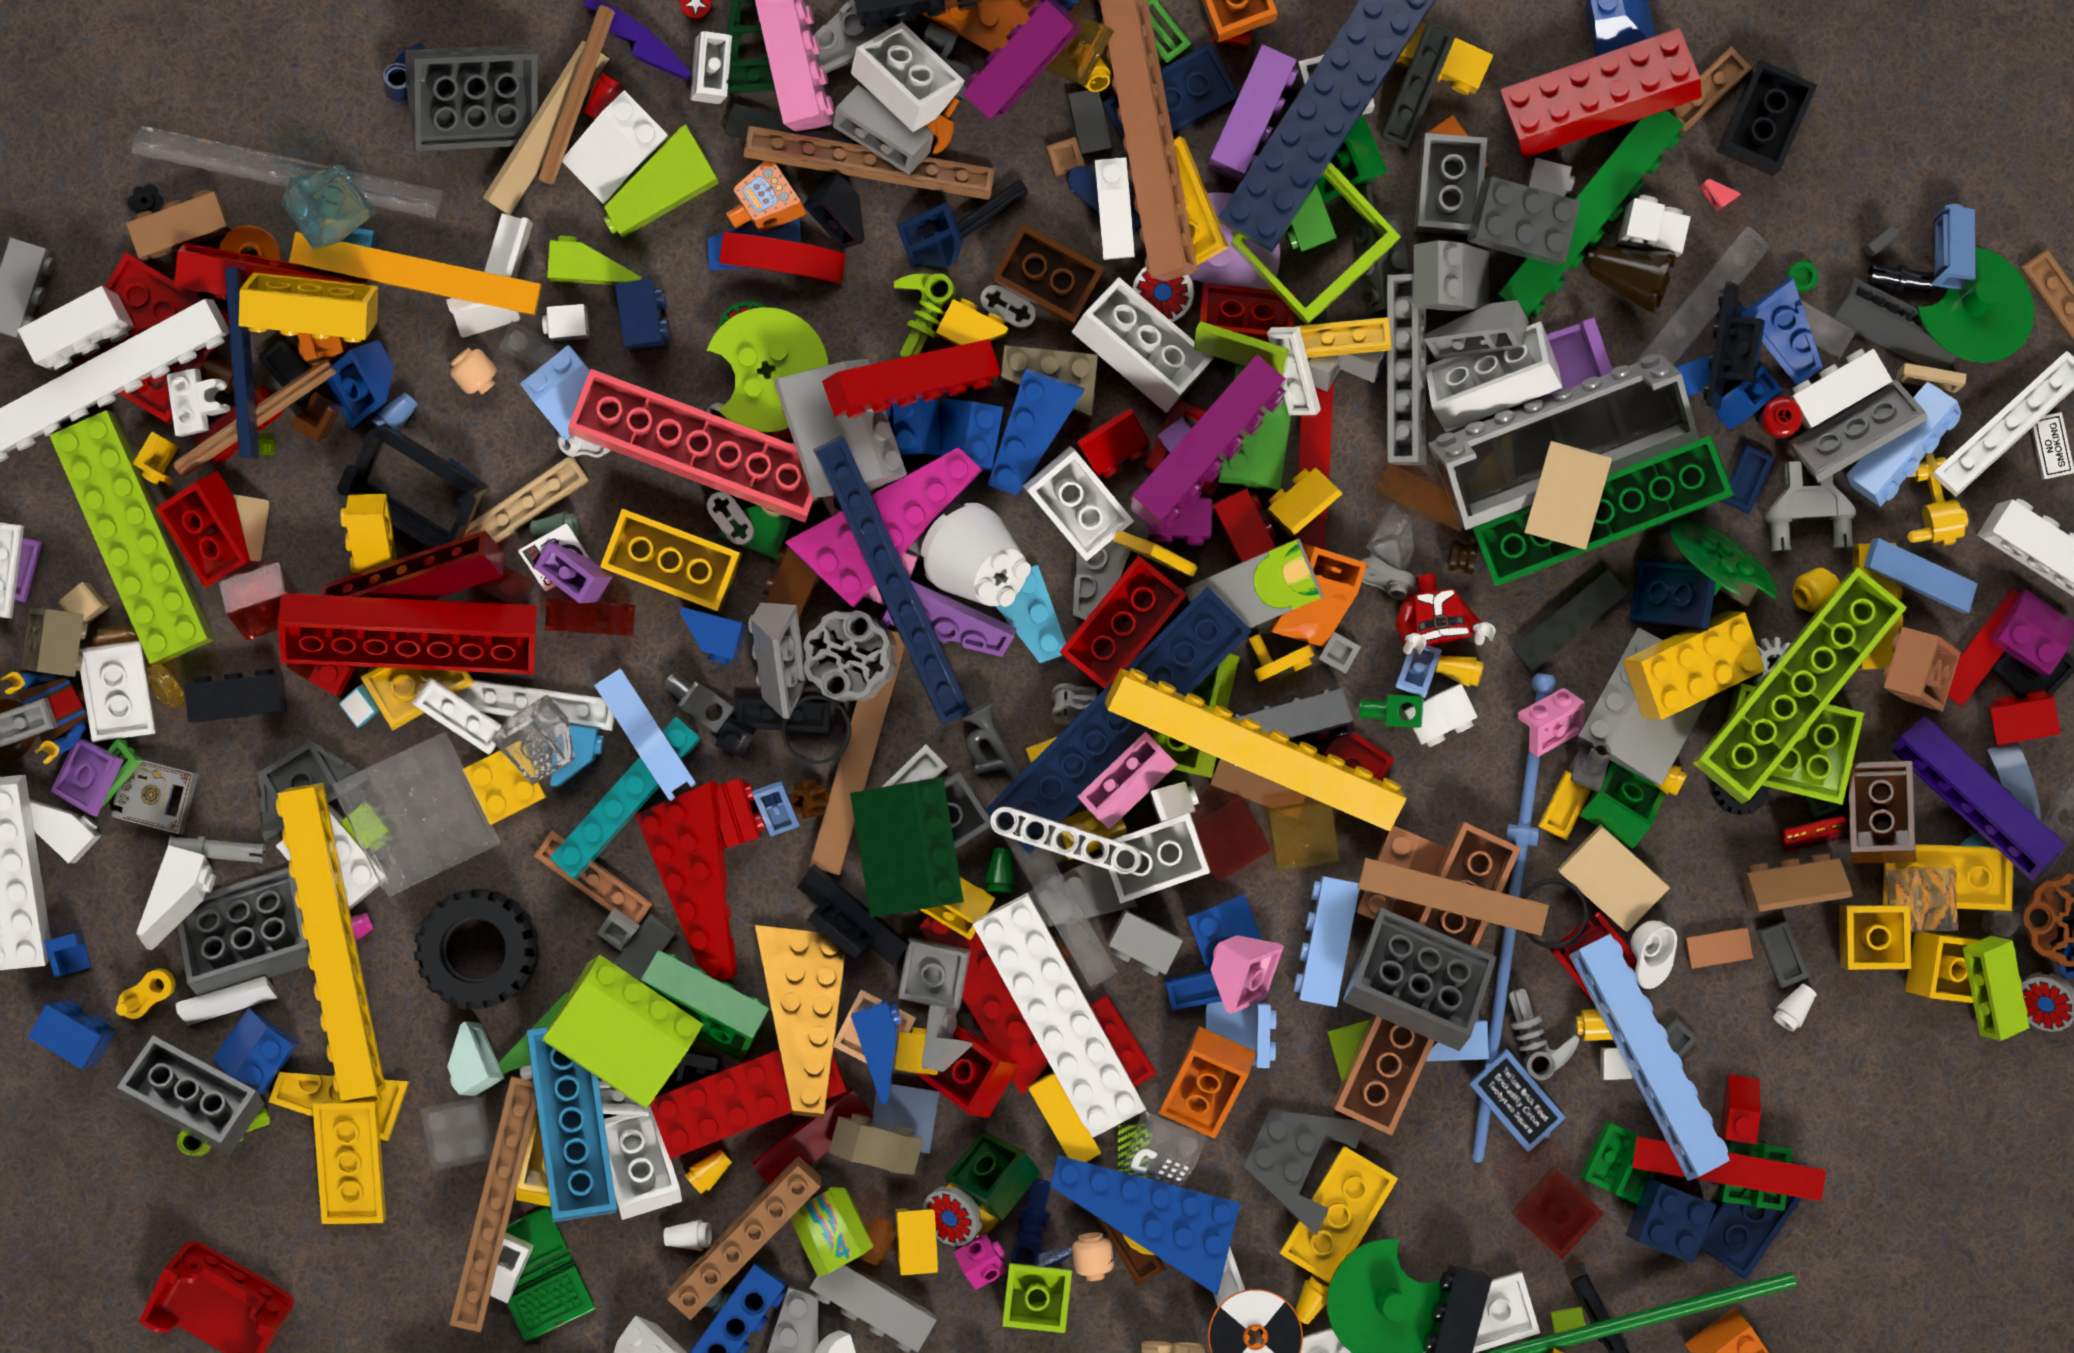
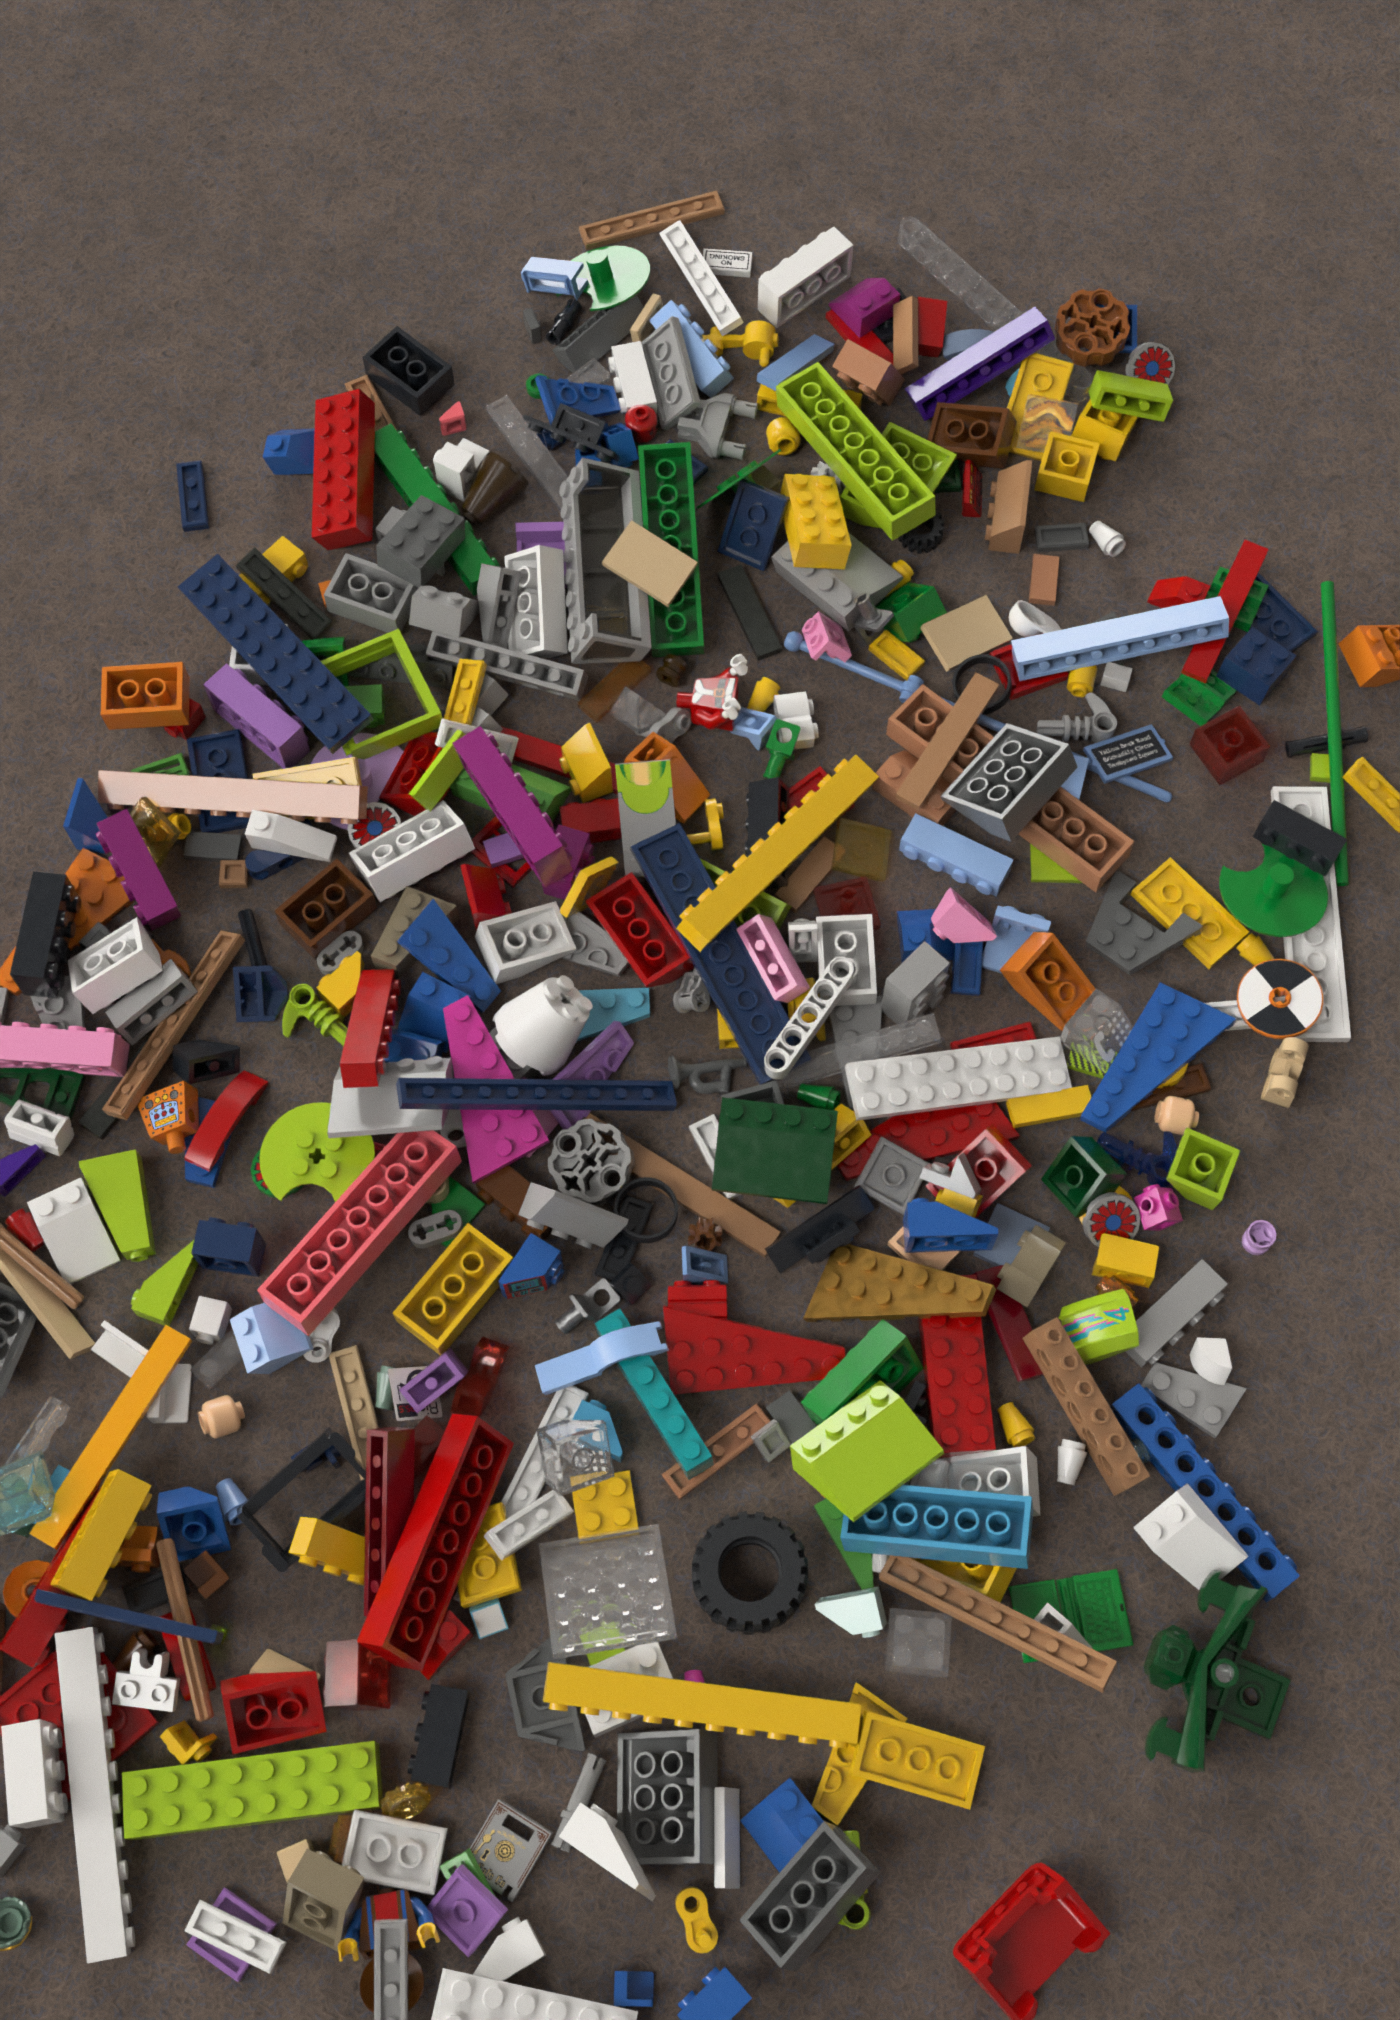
camera: 75 degrees left, 20 degrees down
(1339, 652) = (719, 783): light grey tile -> none
(1997, 697) = (905, 334): none -> medium nougat tile

